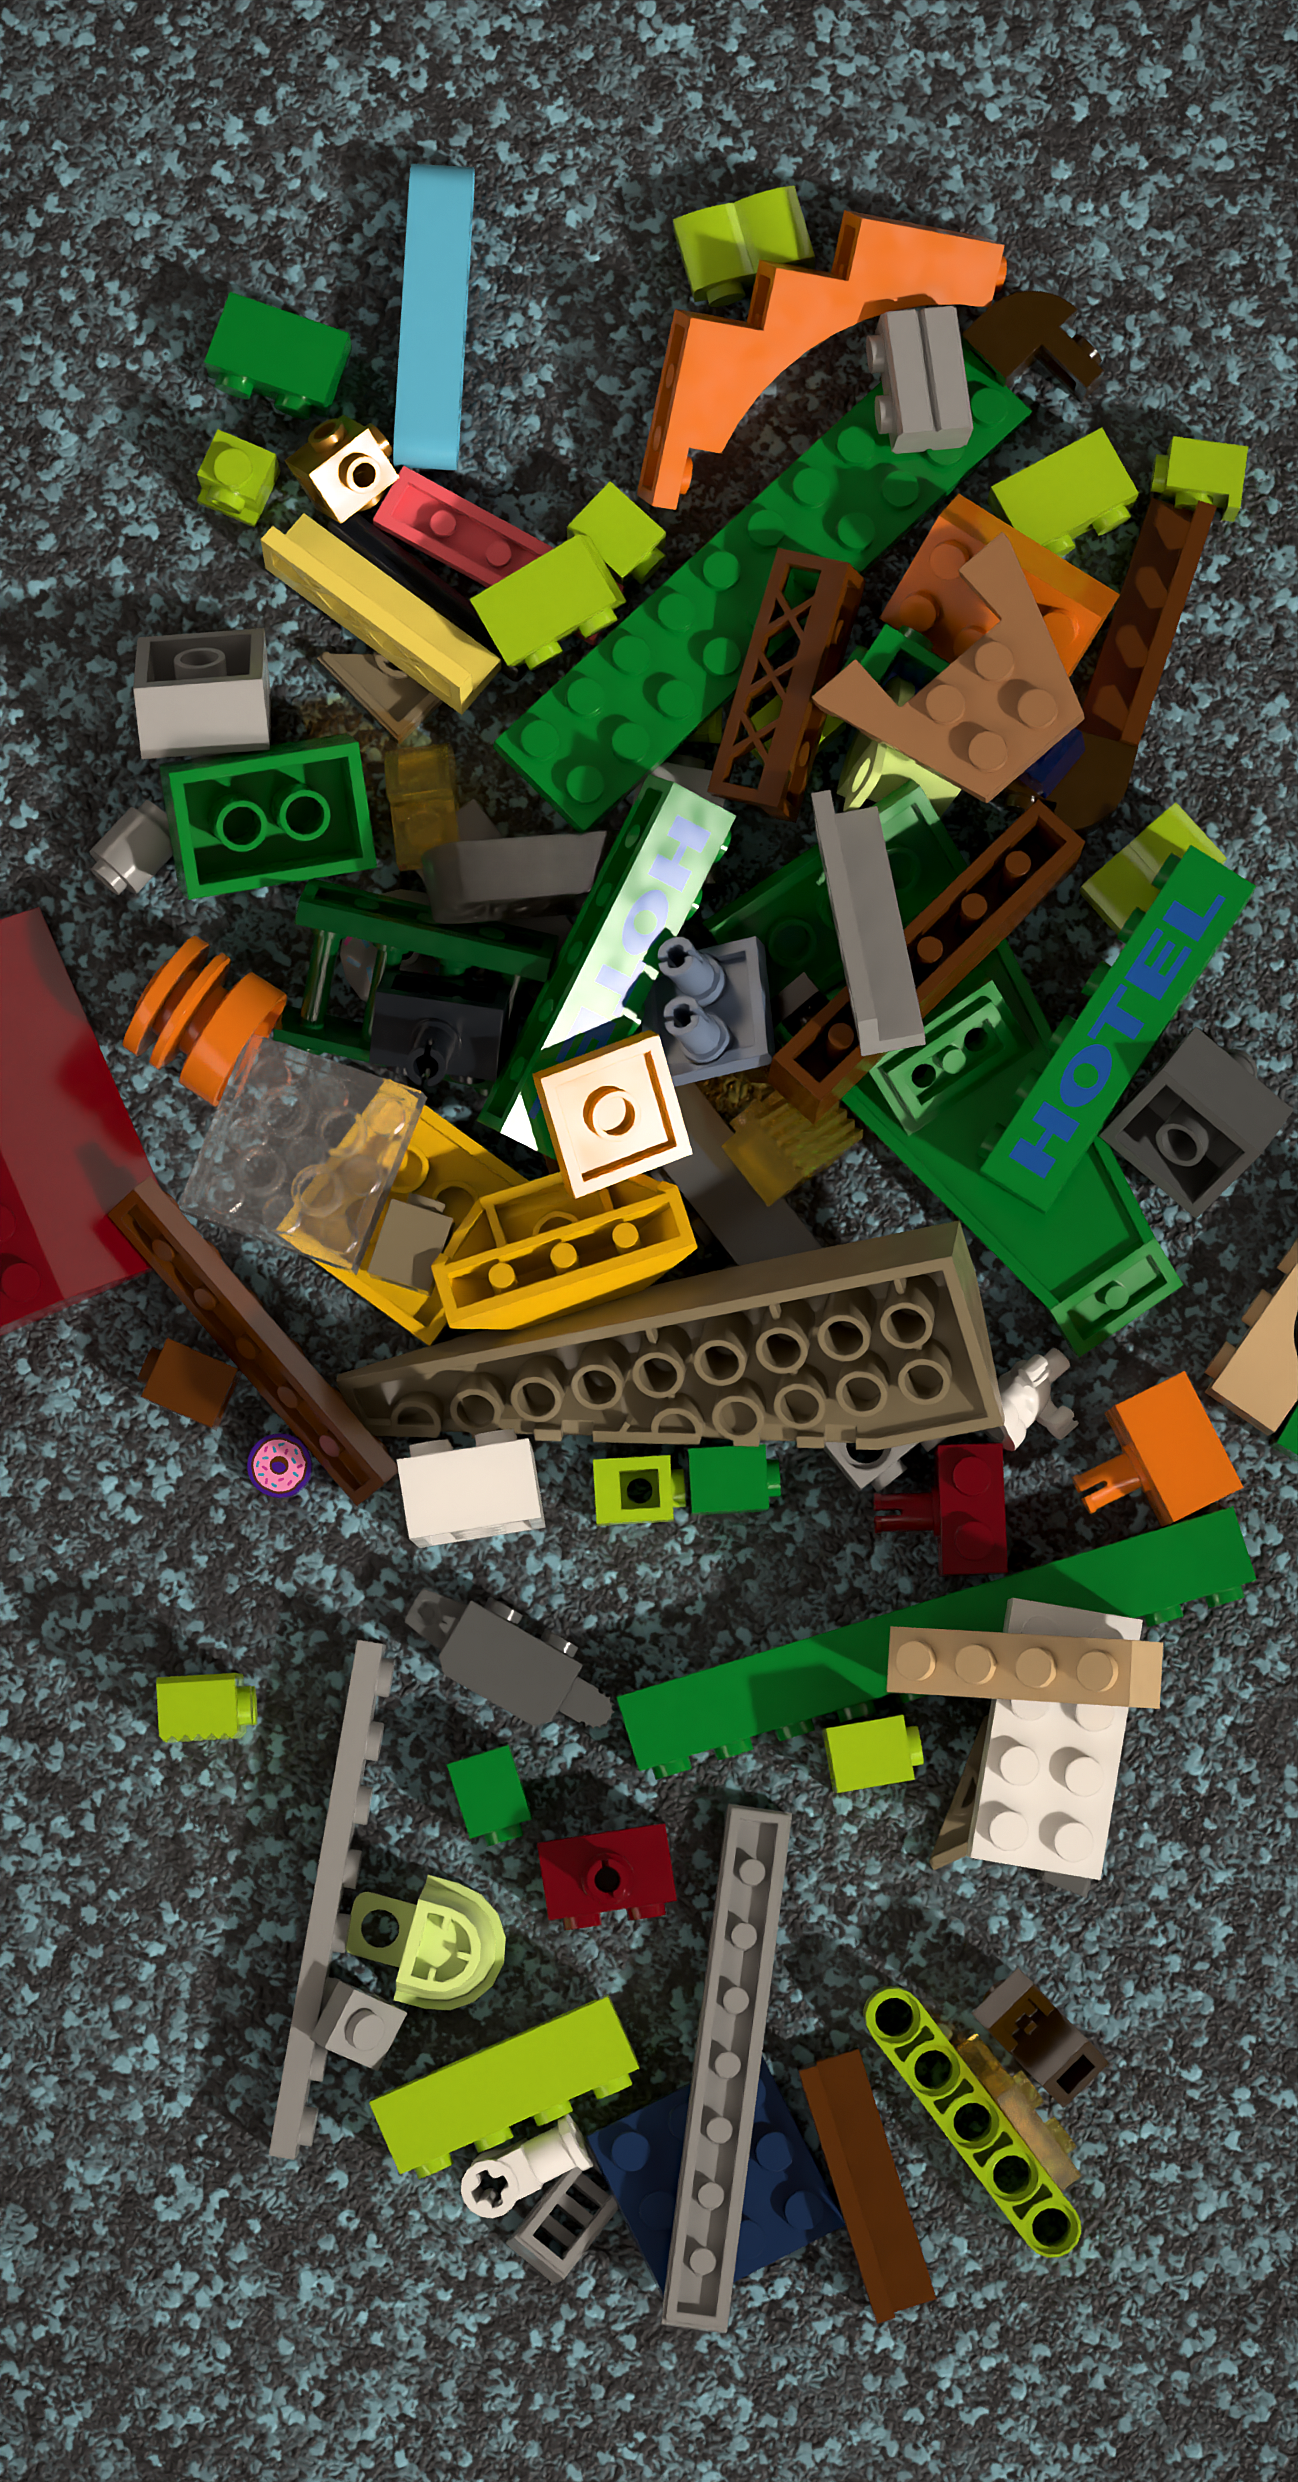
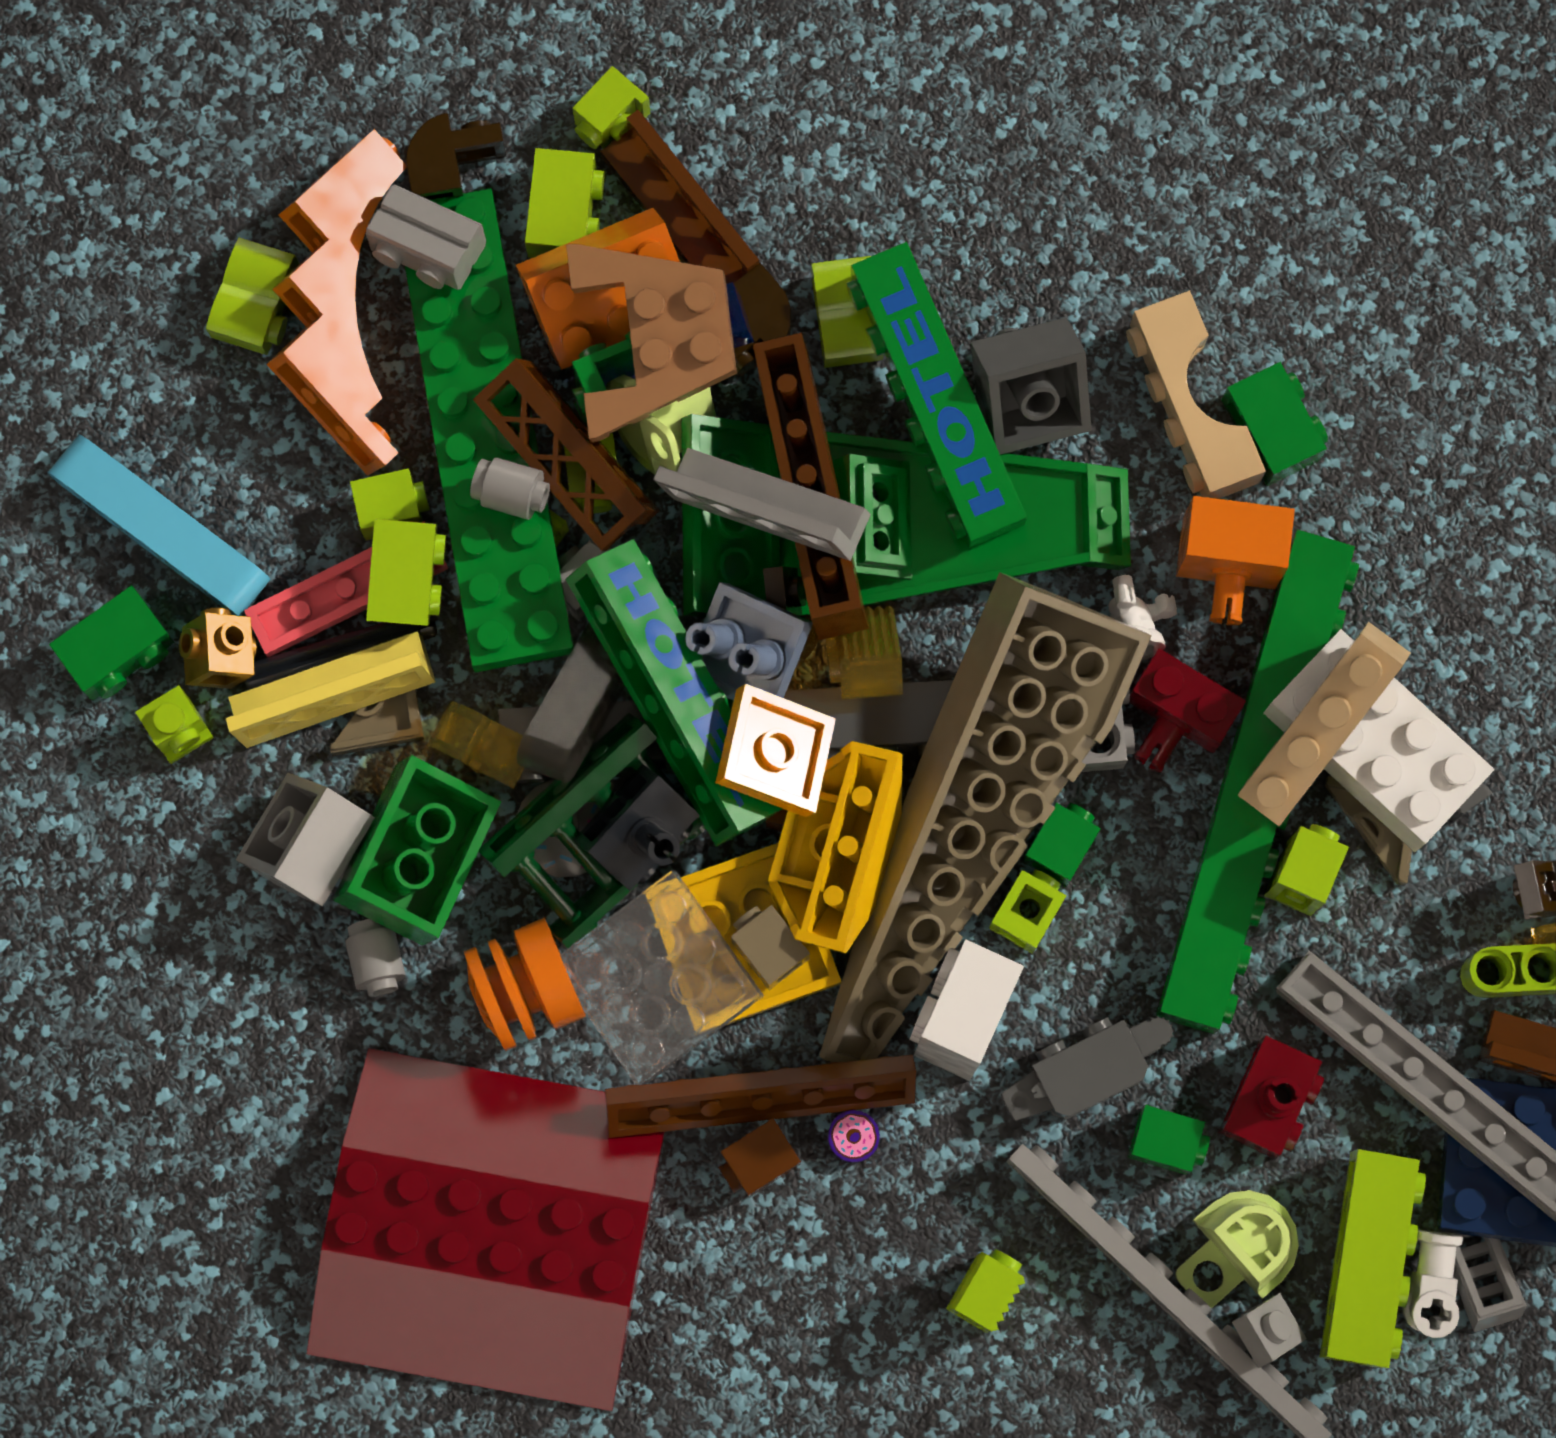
camera: 55 degrees left, 5 degrees down
(706, 650) = (509, 487): none -> light grey brick

